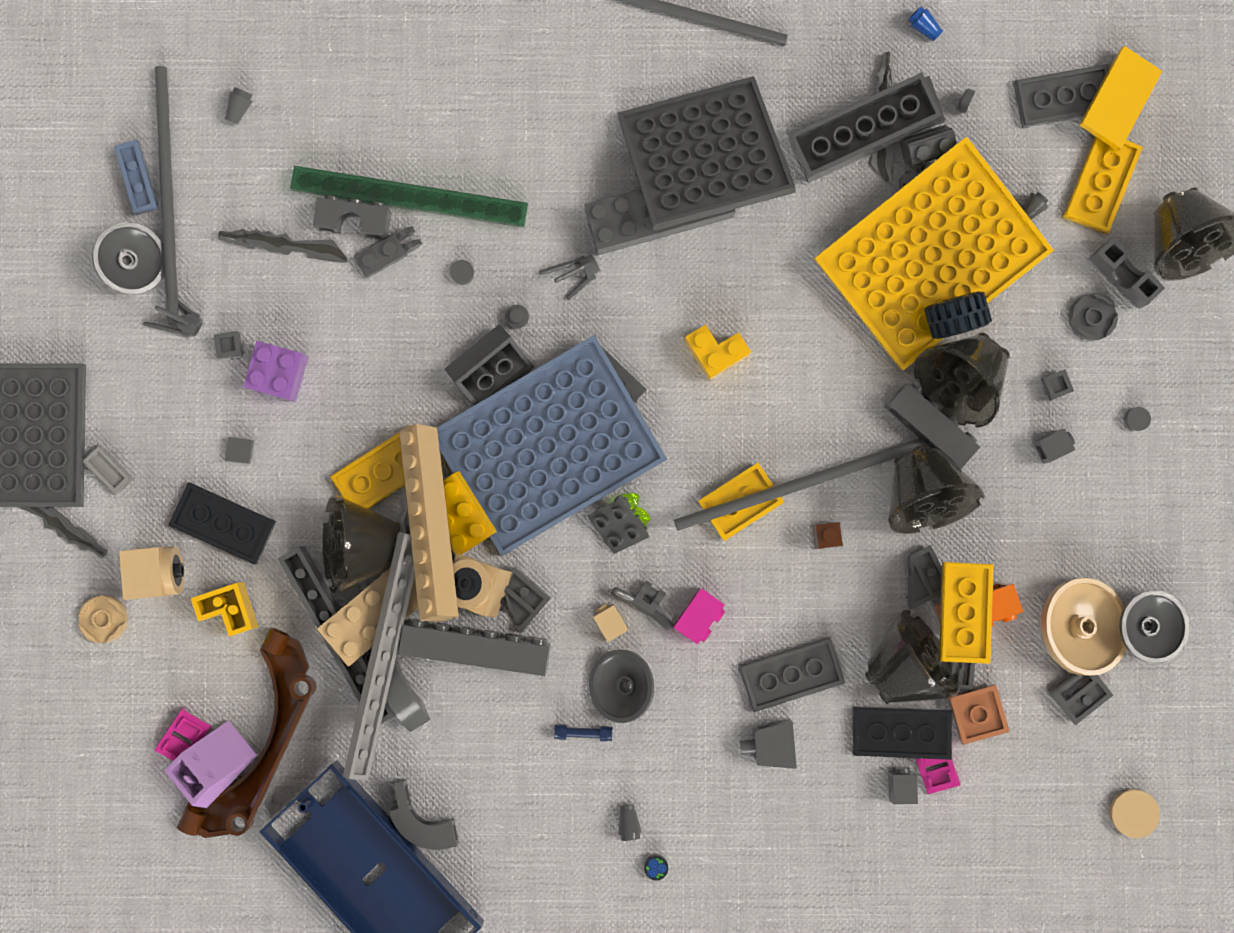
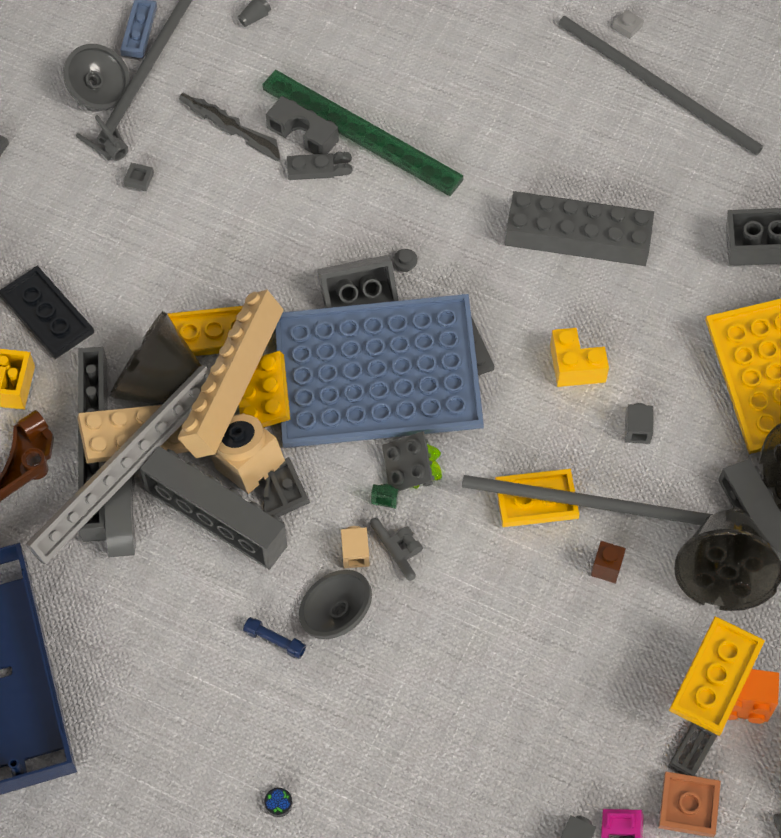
camera: 25 degrees right, 25 degrees down
(239, 450) = (97, 261): dark grey tile -> none
(275, 371) = (167, 211): medium lavender brick -> none
(416, 829) = (76, 663): dark grey arch -> none
(462, 272) = (375, 207): dark grey tile -> none
(584, 266) = (488, 245): dark grey plant -> none
(612, 561) = (384, 495): none -> clear green plate
(629, 824) = (273, 744): dark grey cone -> none
(699, 616) = (444, 580): dark pink brick -> none
(705, 153) = (643, 194): dark grey plate -> none
(772, 745) = (458, 734): dark grey torso -> none
(791, 674) = (511, 679): dark grey tile -> none
(797, 387) = (639, 423): none -> dark grey brick
(902, 732) = (600, 783): black tile -> none
(908, 664) = (635, 707): clear smoke cone -> none
(923, 577) = (686, 643): dark grey wing -> none

